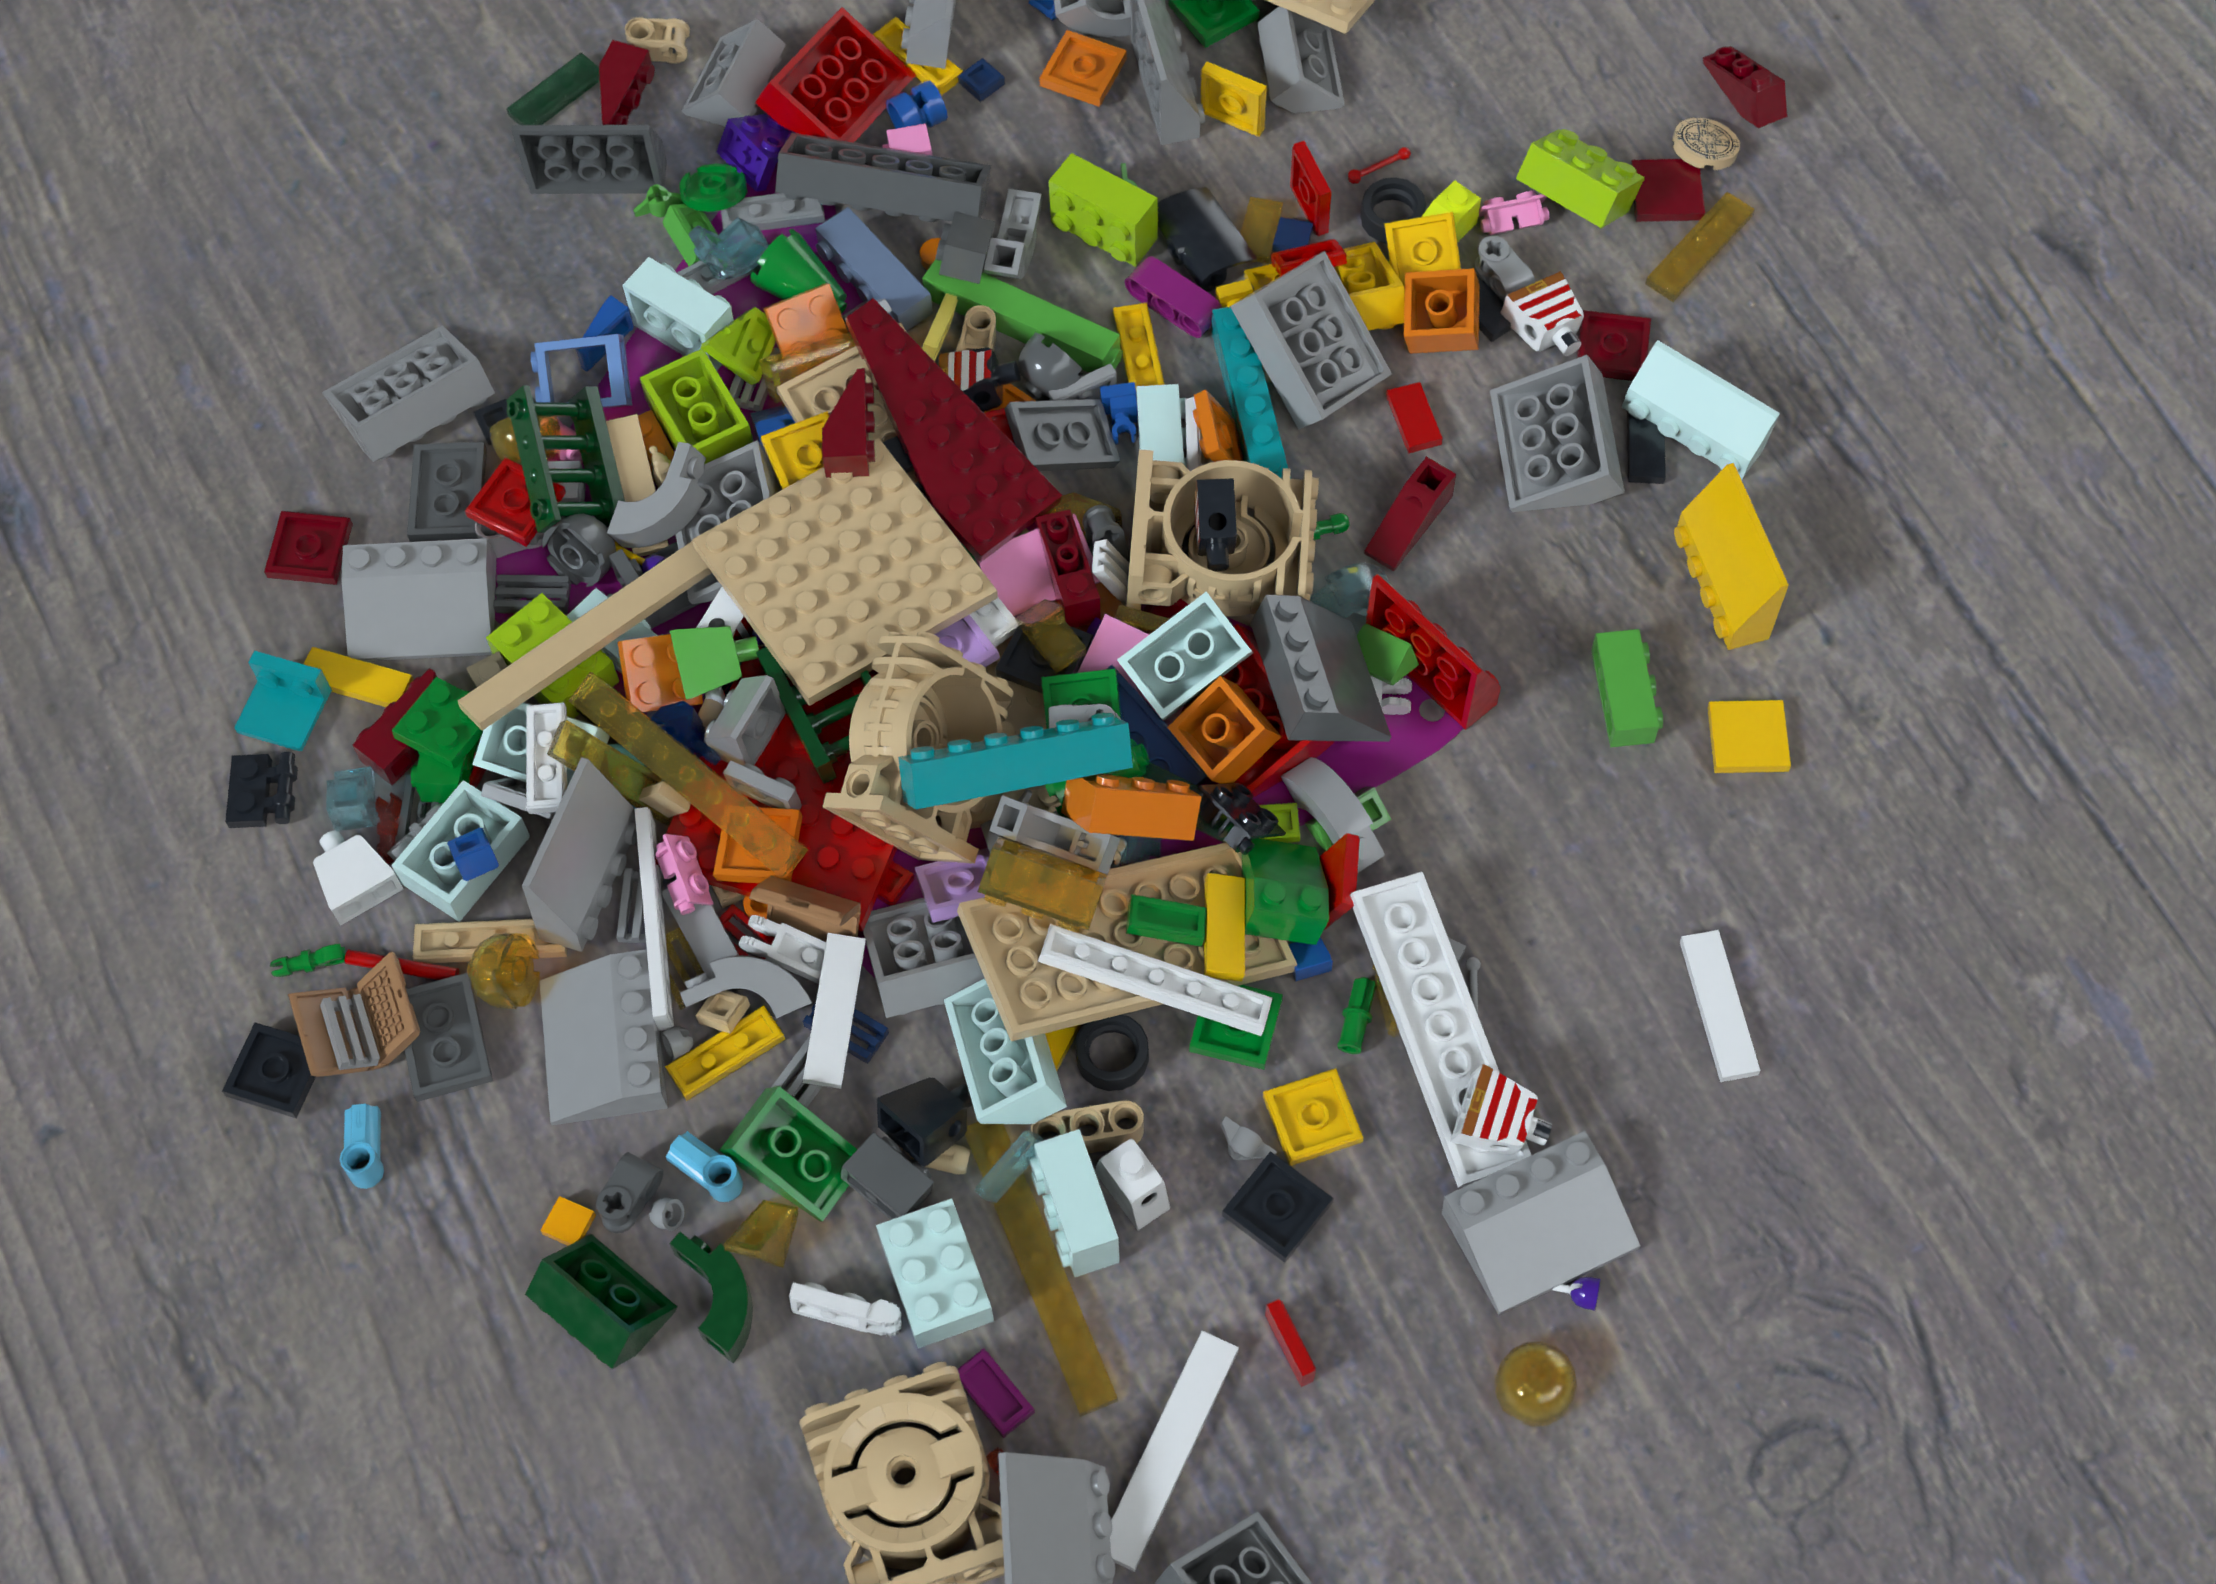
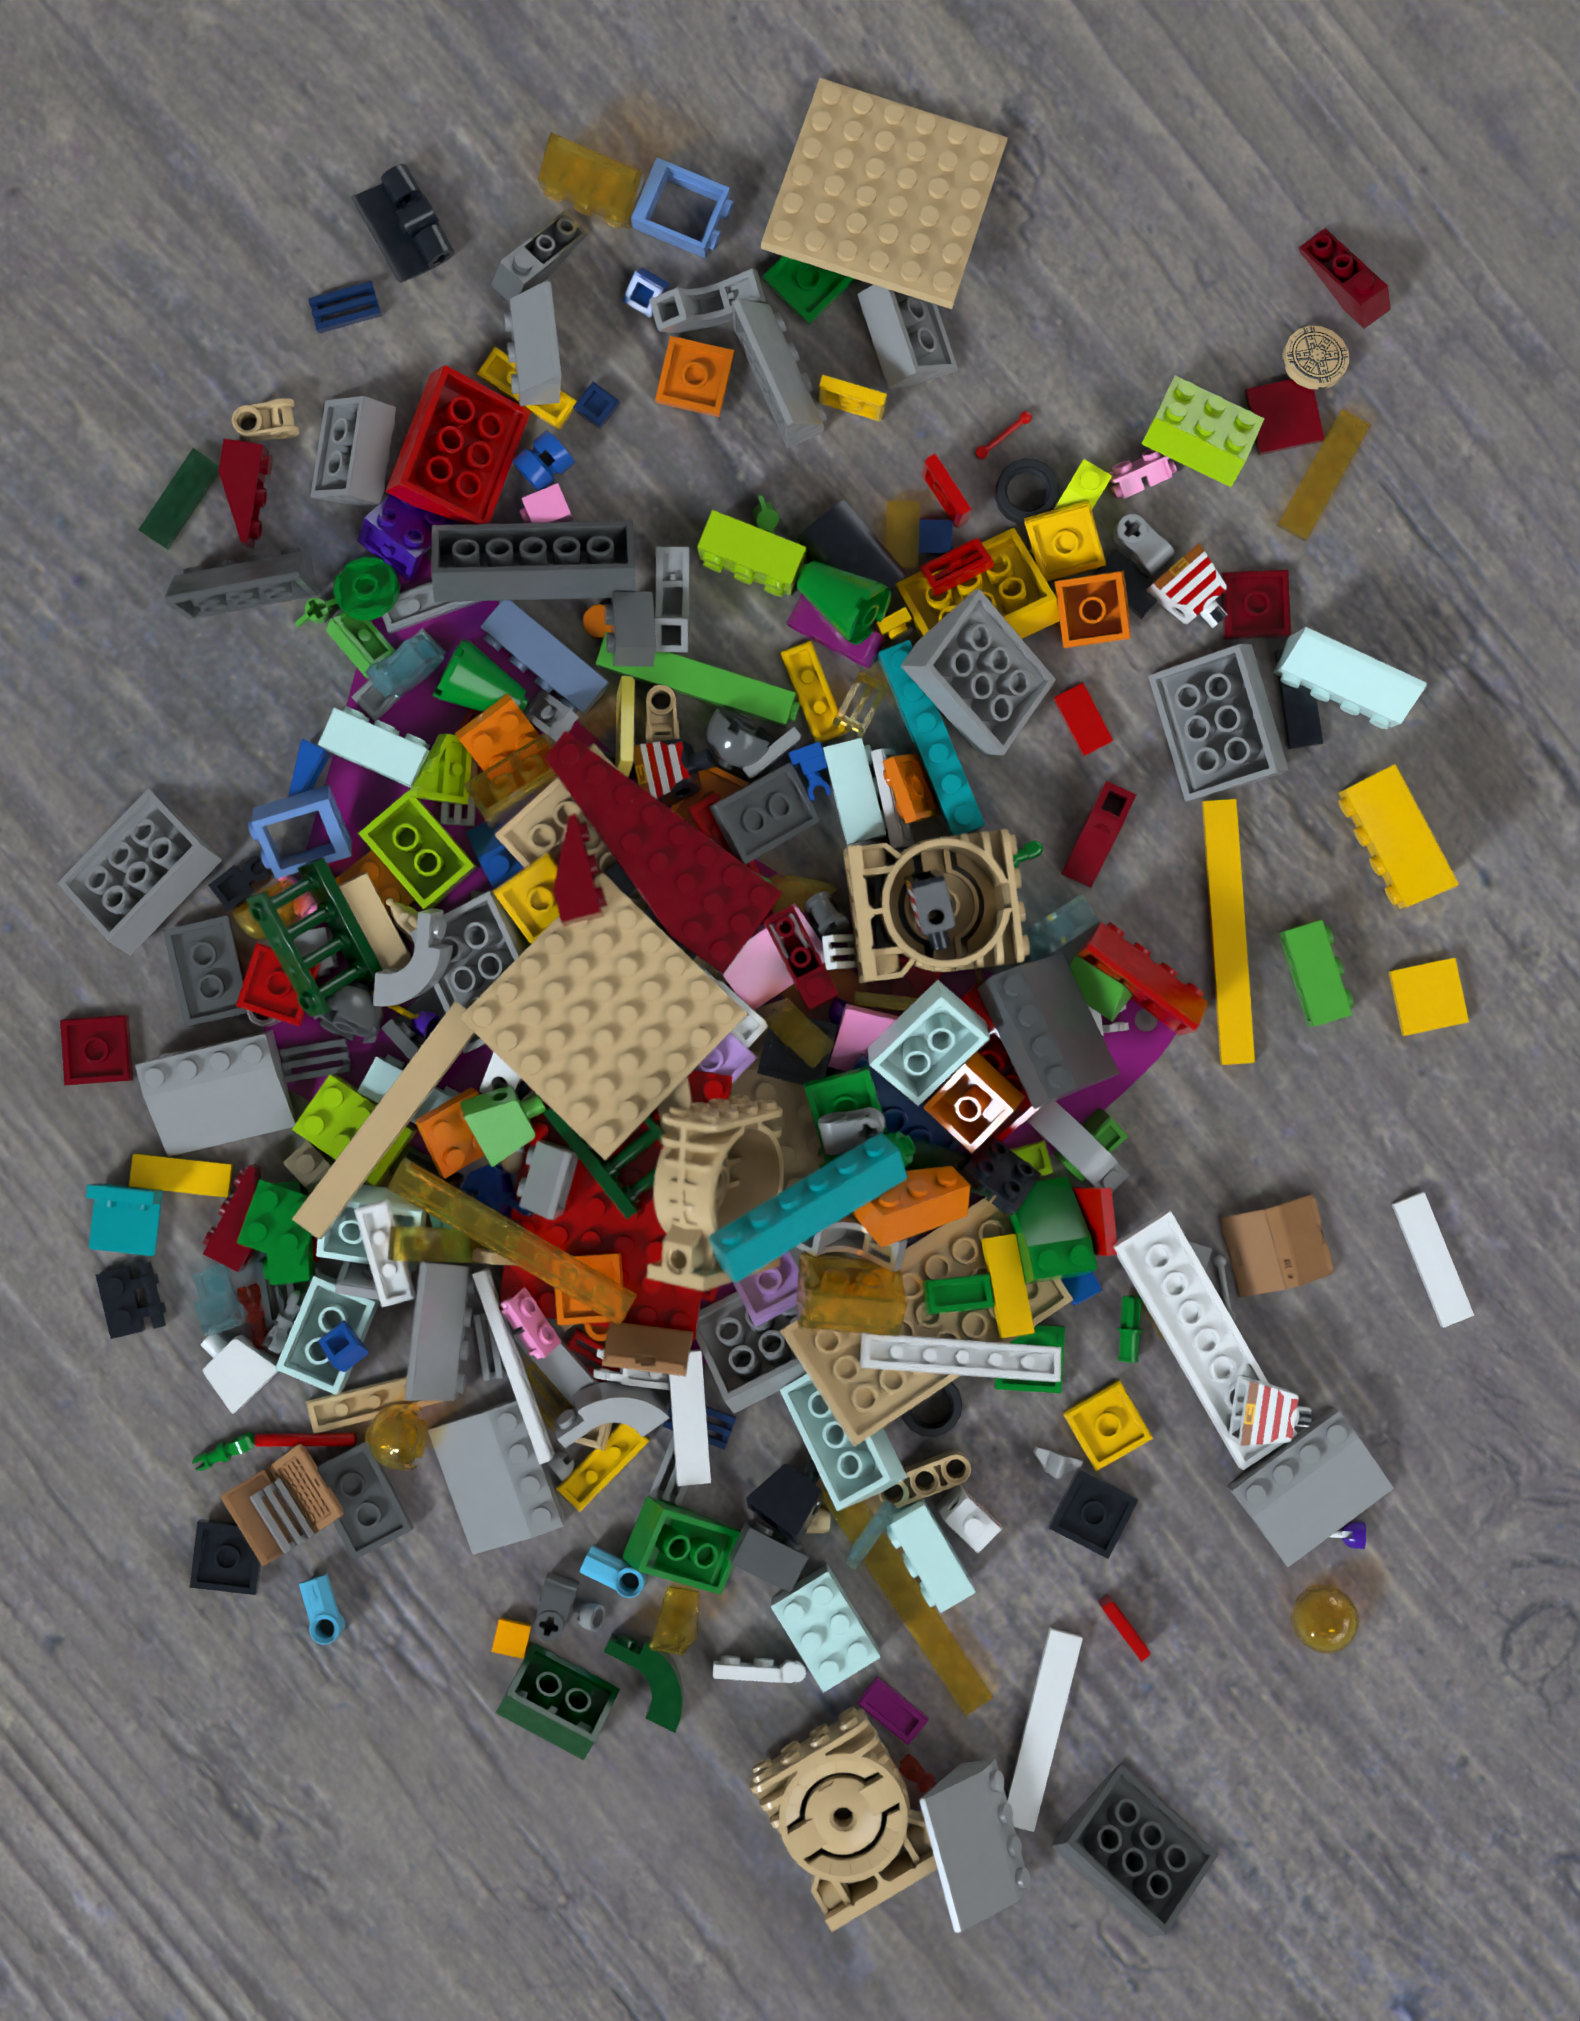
camera: 15 degrees left, 25 degrees up
(754, 784) = (567, 1231): light grey plate -> none
(1190, 254) = (844, 599): none -> green cone
(1190, 364) = (851, 722): none -> clear yellow tile
(1535, 640) = (1228, 932): none -> yellow tile
(1539, 952) = (1277, 1247): none -> medium nougat piece

